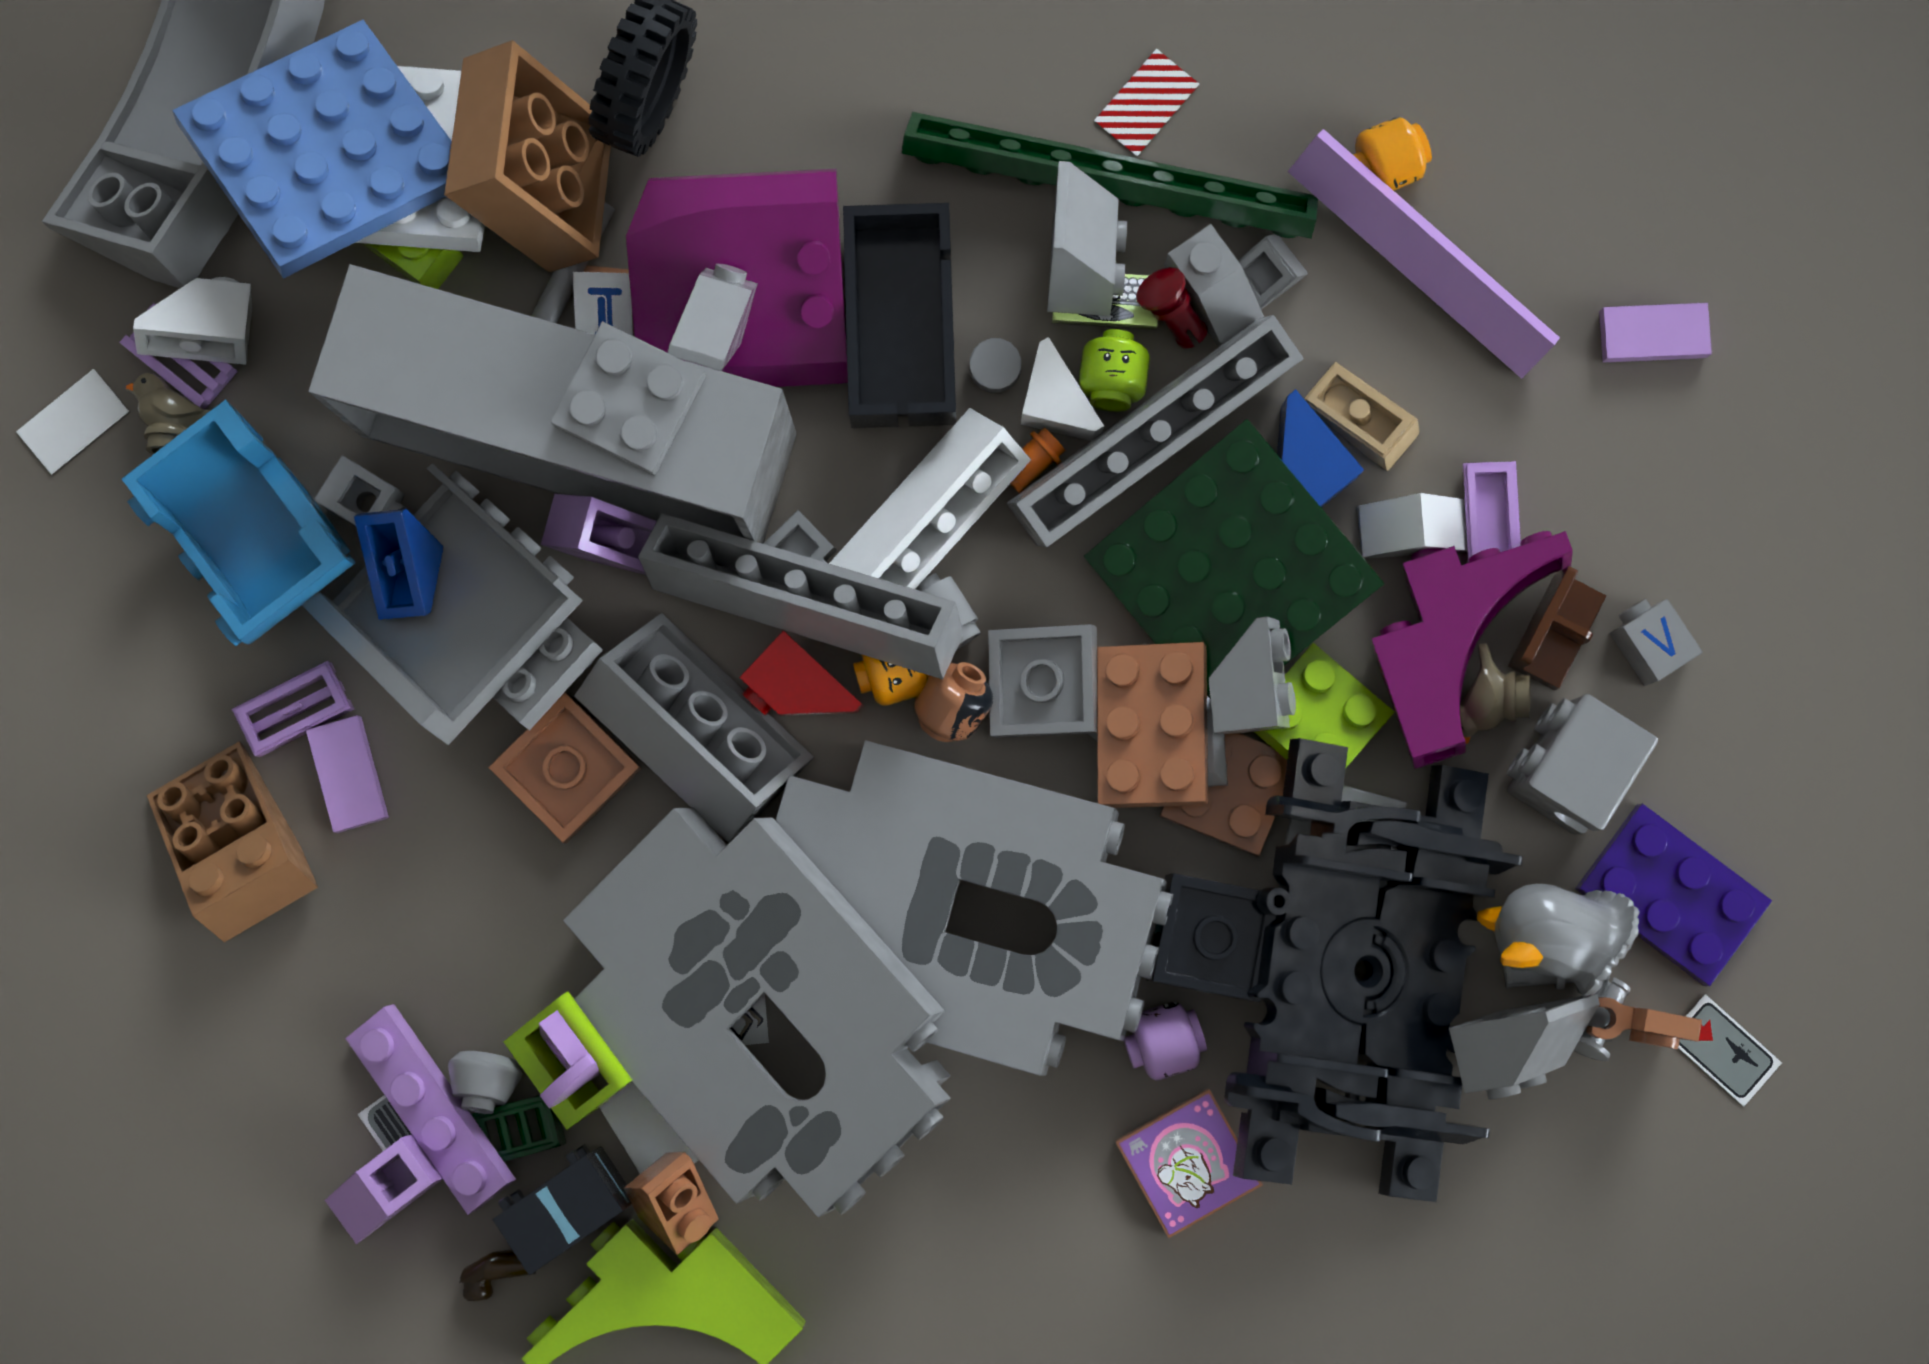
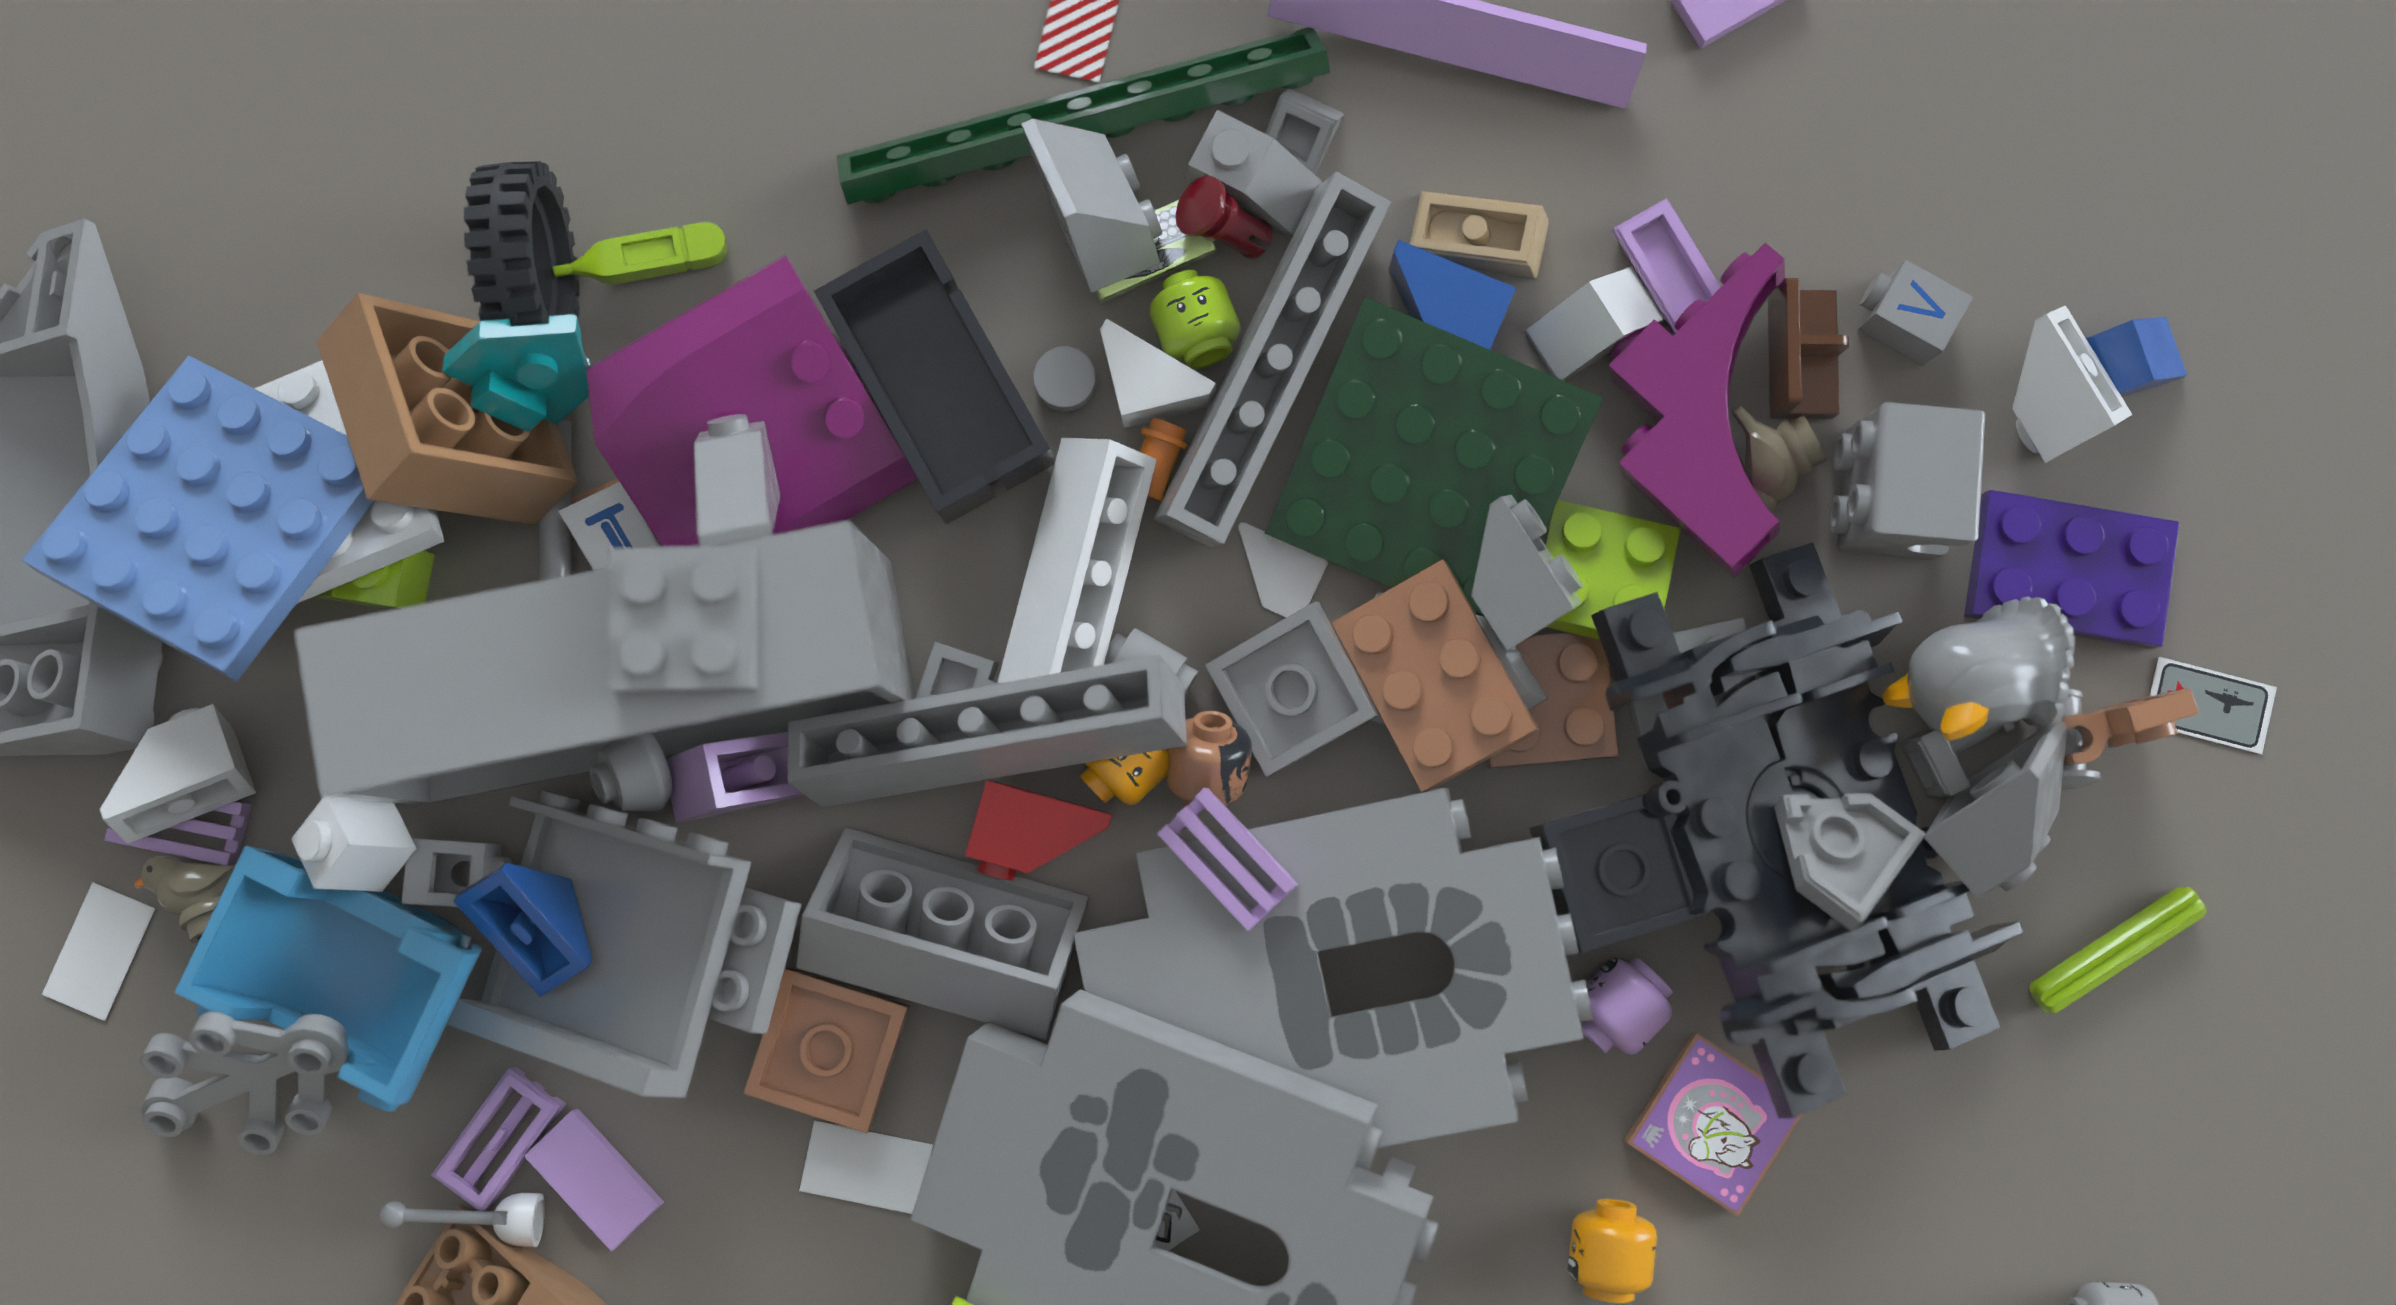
camera: 20 degrees left, 0 degrees up
(197, 568) = (310, 1047): none -> light grey plant
(275, 773) = (516, 1219): none -> hinge
(301, 437) = (353, 844): none -> white slope
(528, 492) = (632, 774): none -> light grey cone
(547, 868) = (864, 1167): none -> white sticker
(601, 156) = (523, 370): none -> teal plate
(736, 115) = (650, 254): none -> lime piece
(916, 734) = (1189, 818): none -> lavender tile
(1062, 1214) = (1612, 1251): none -> light orange head
(1081, 591) = (1282, 572): none -> white sticker
(1384, 1007) = (1844, 850): none -> light grey plate
(1490, 984) = (1934, 764): none -> light grey tile
(1555, 1192) = (2117, 949): none -> lime axle
(1735, 755) = (2063, 389): none -> white slope
(1789, 759) = (2139, 354): none -> blue slope

